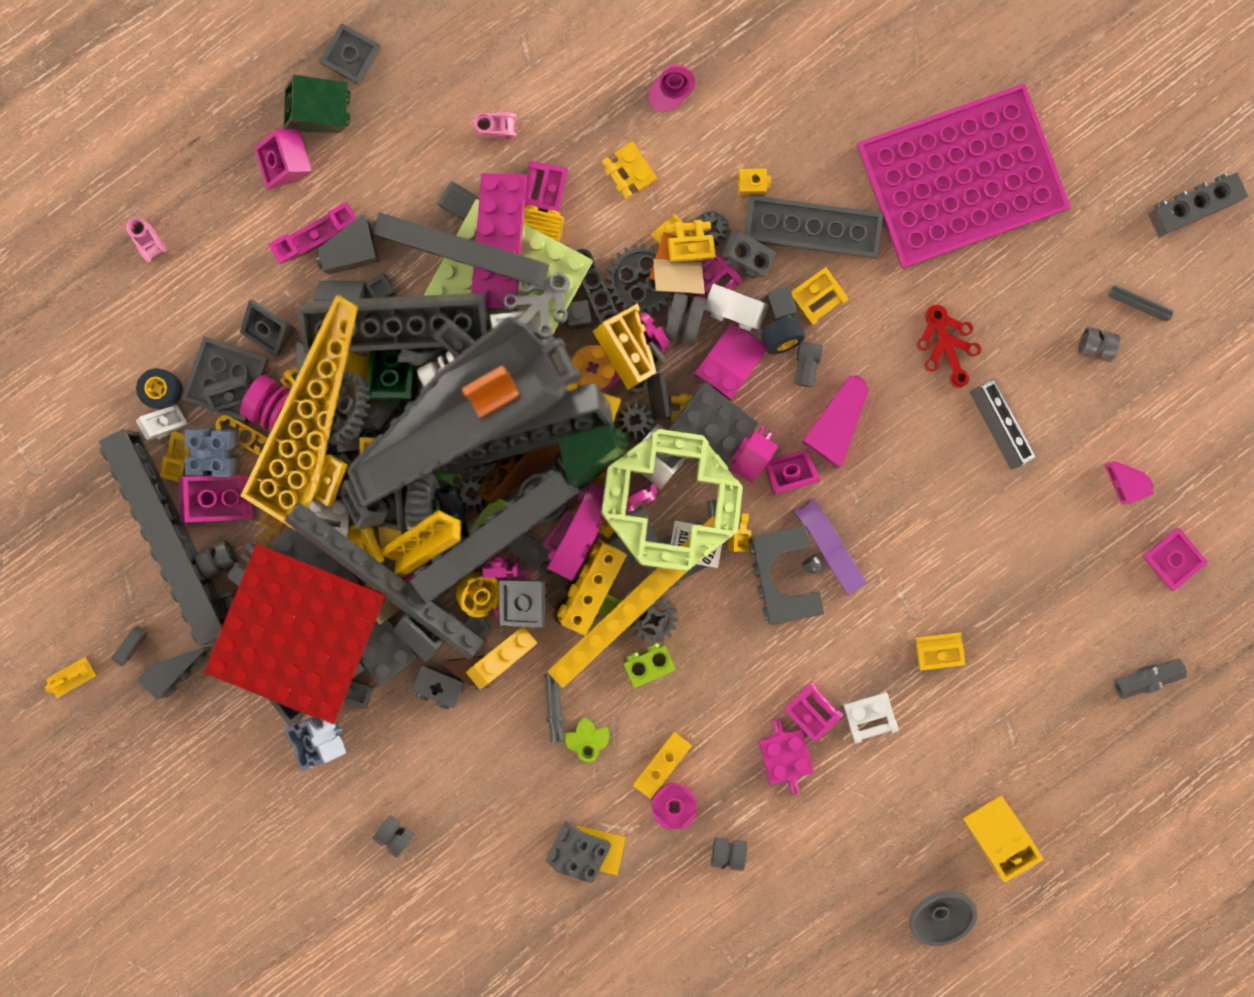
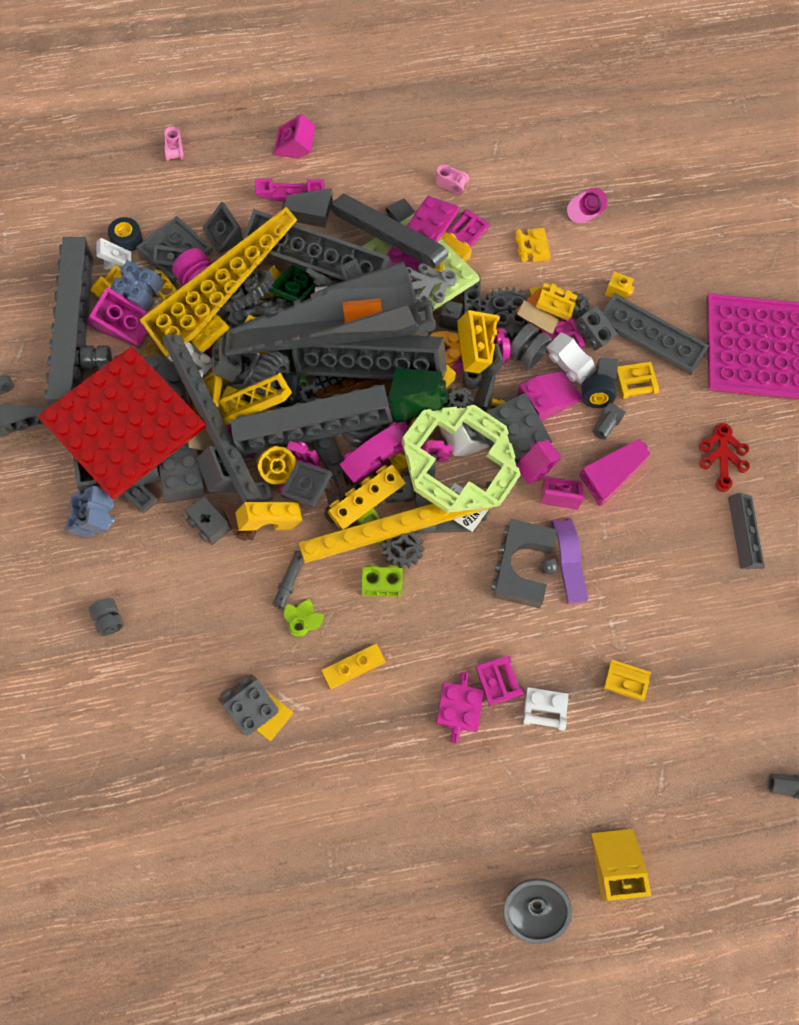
camera: 20 degrees right, 20 degrees down
(316, 105) = (336, 117): dark green slope -> none
(350, 54) = (374, 101): dark grey plate -> none
(674, 819) = (336, 698): dark pink plate -> none
(729, 854) = (373, 763): dark grey wheel -> none
(740, 540) = (500, 516): yellow plate -> none

